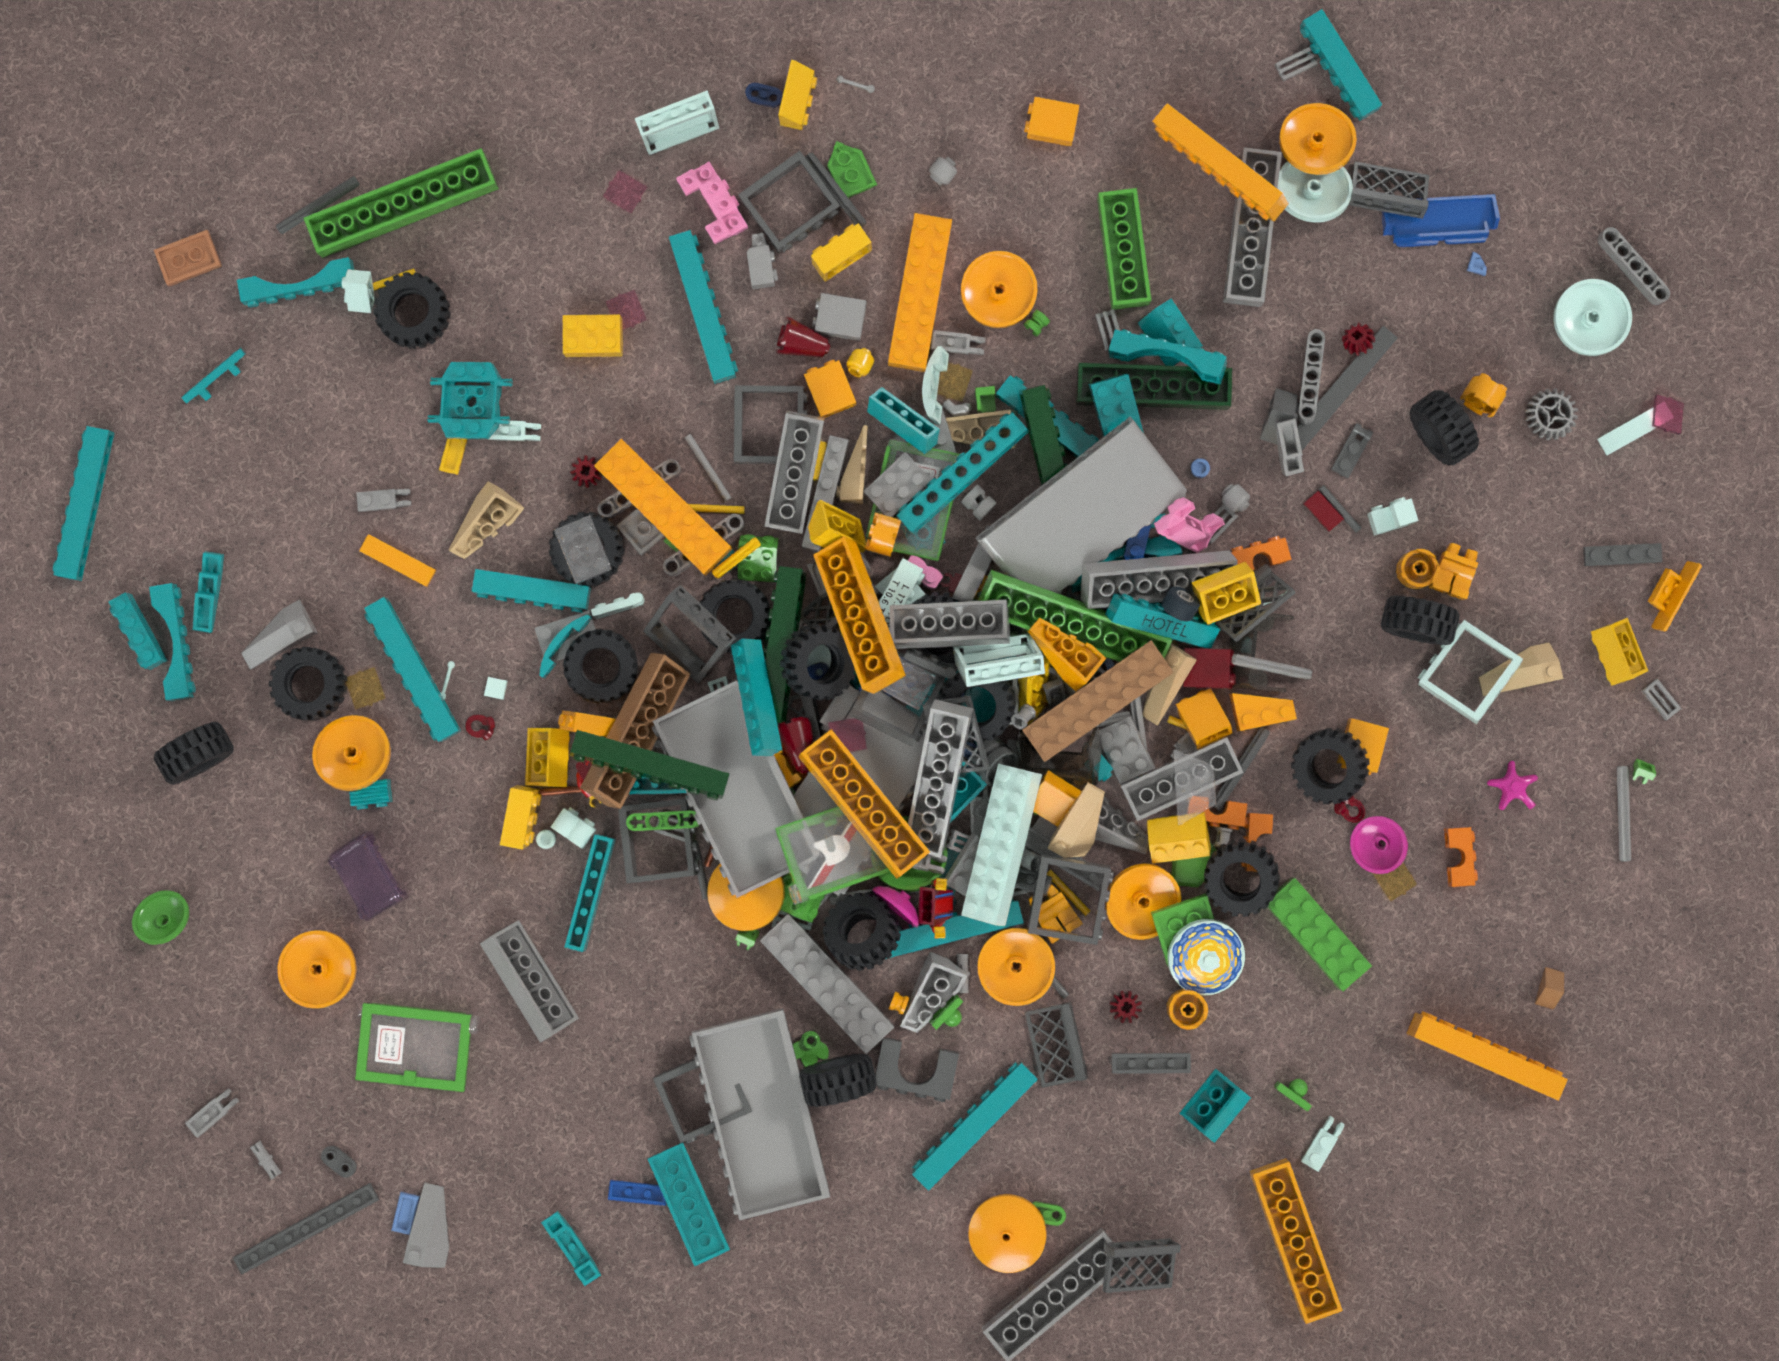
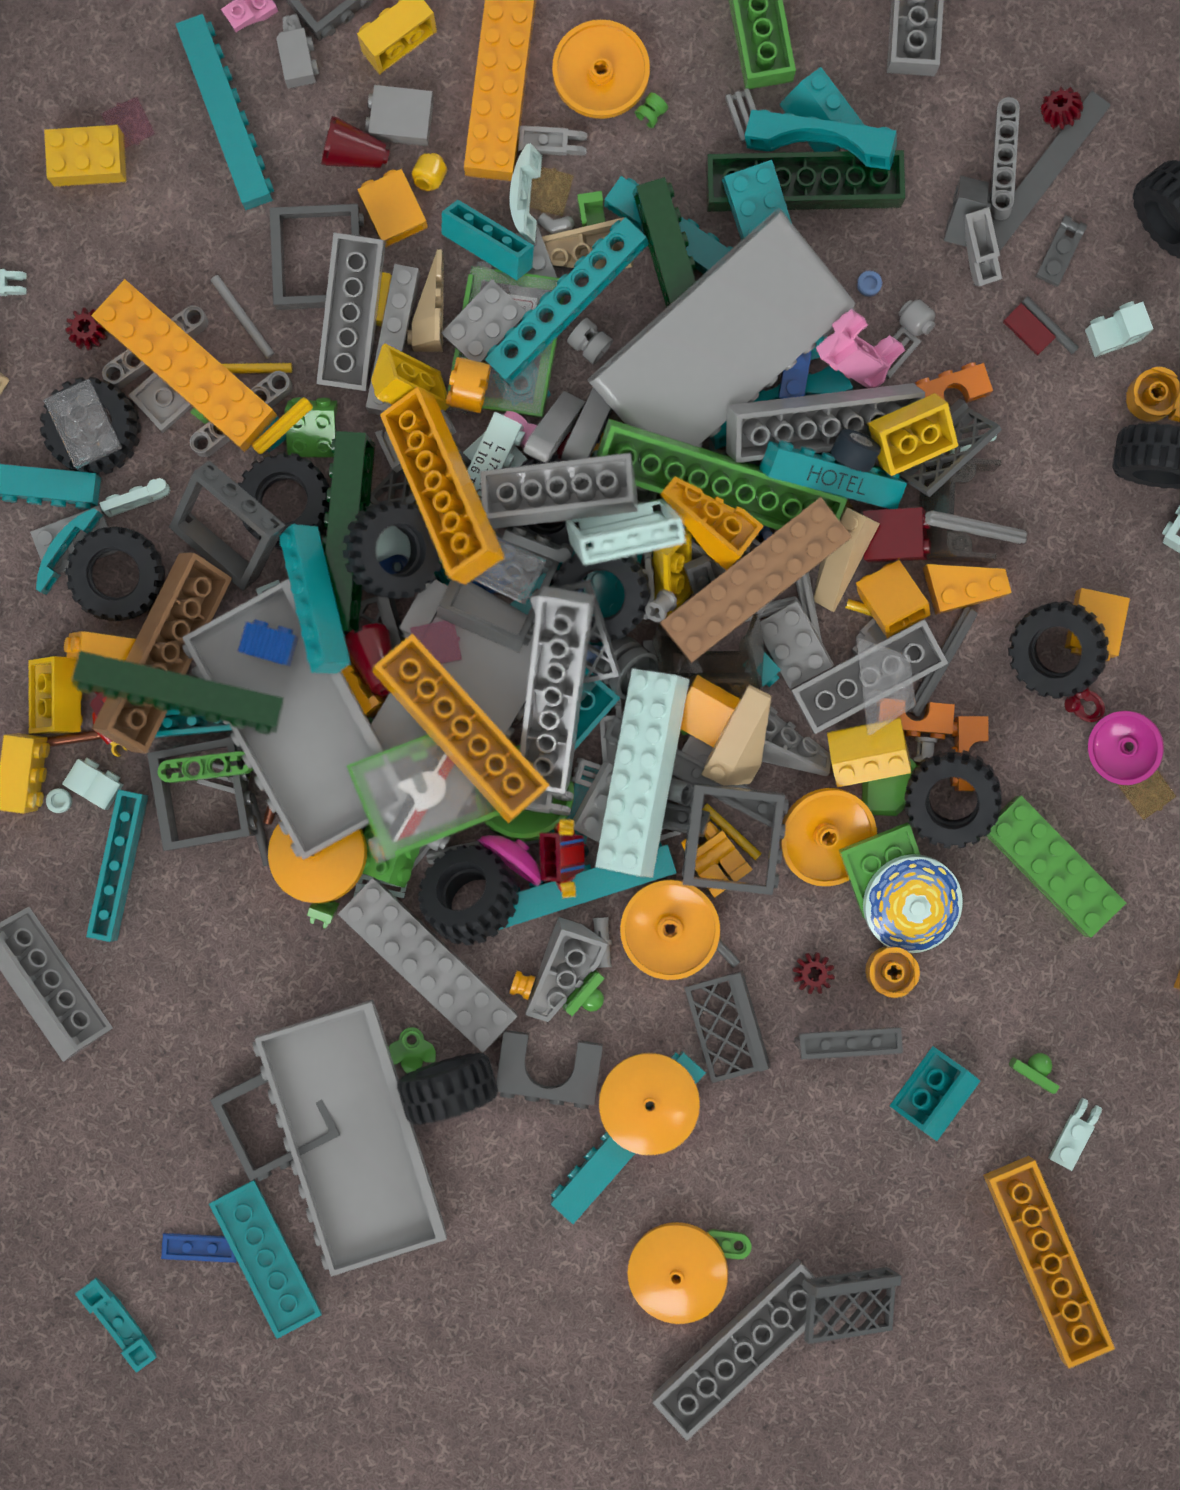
camera: 10 degrees left, 0 degrees up
(719, 730) = (268, 643): none -> blue brick
(948, 571) = (554, 427): none -> light grey beam
(989, 1082) = (646, 1079): none -> light orange dish

